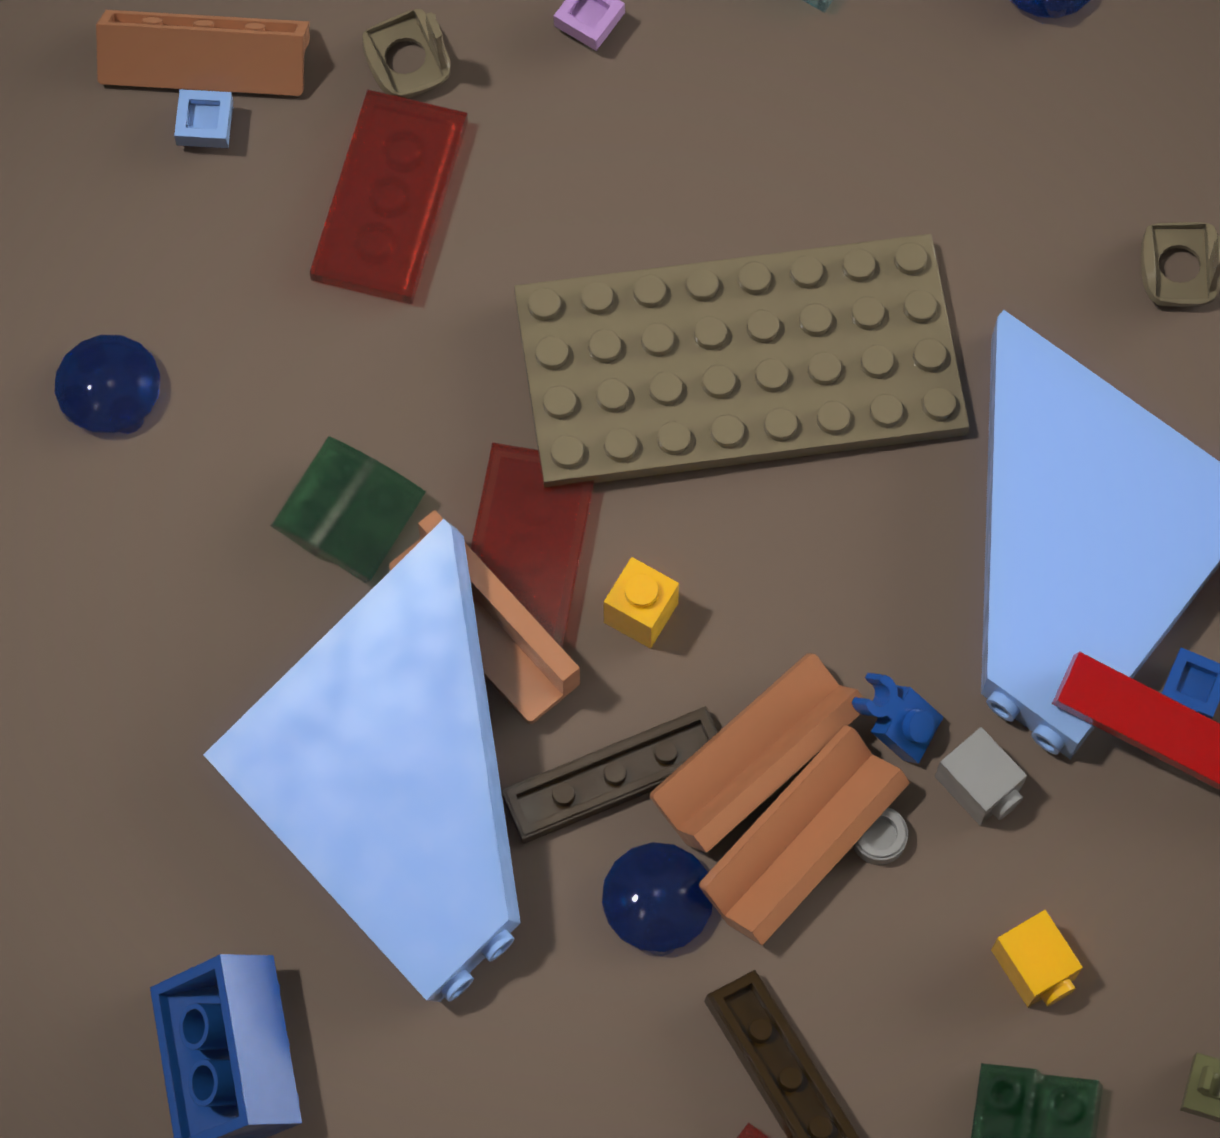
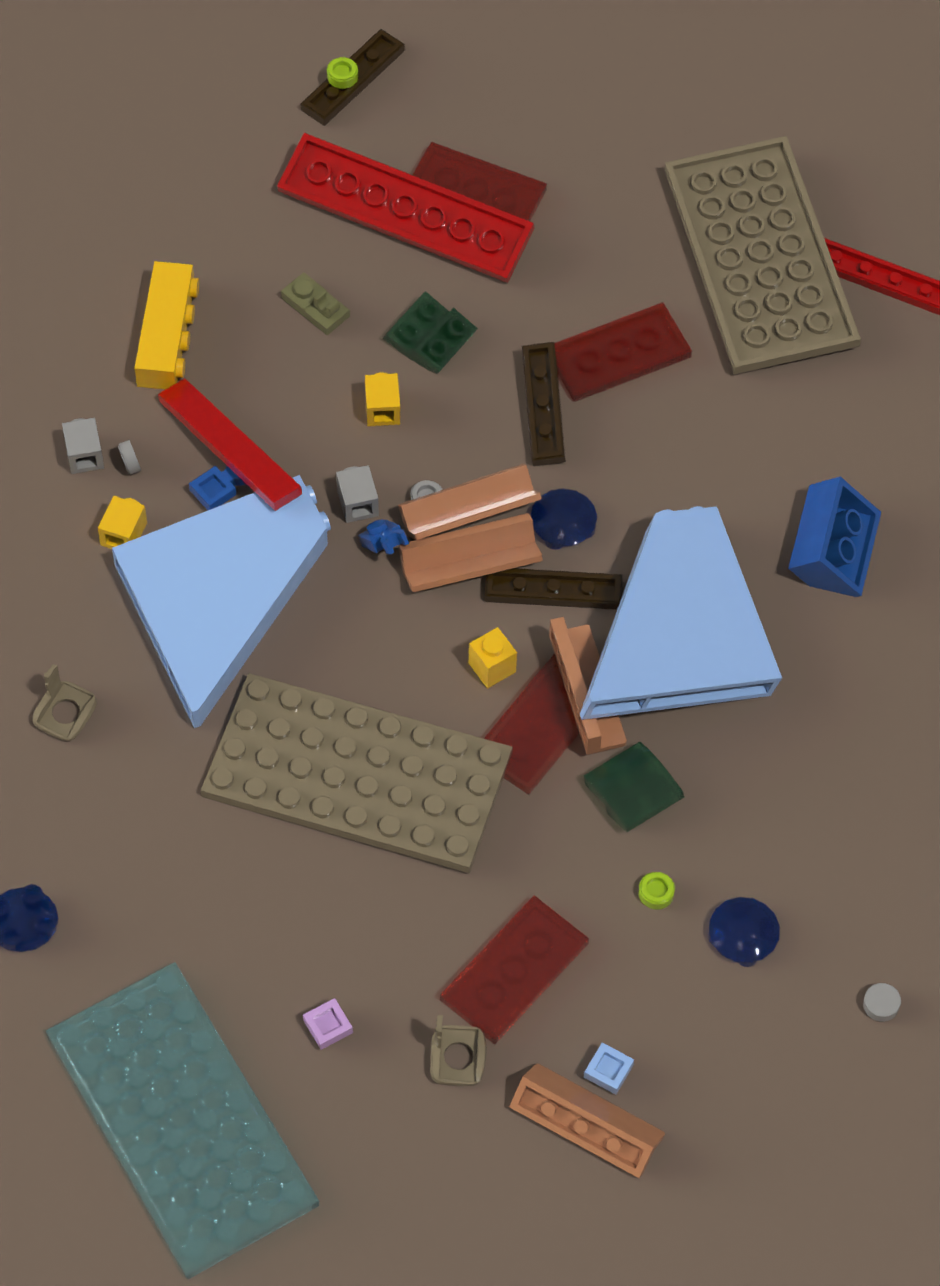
camera: 155 degrees left, 10 degrees down
(251, 387) = (656, 890): none -> lime tile

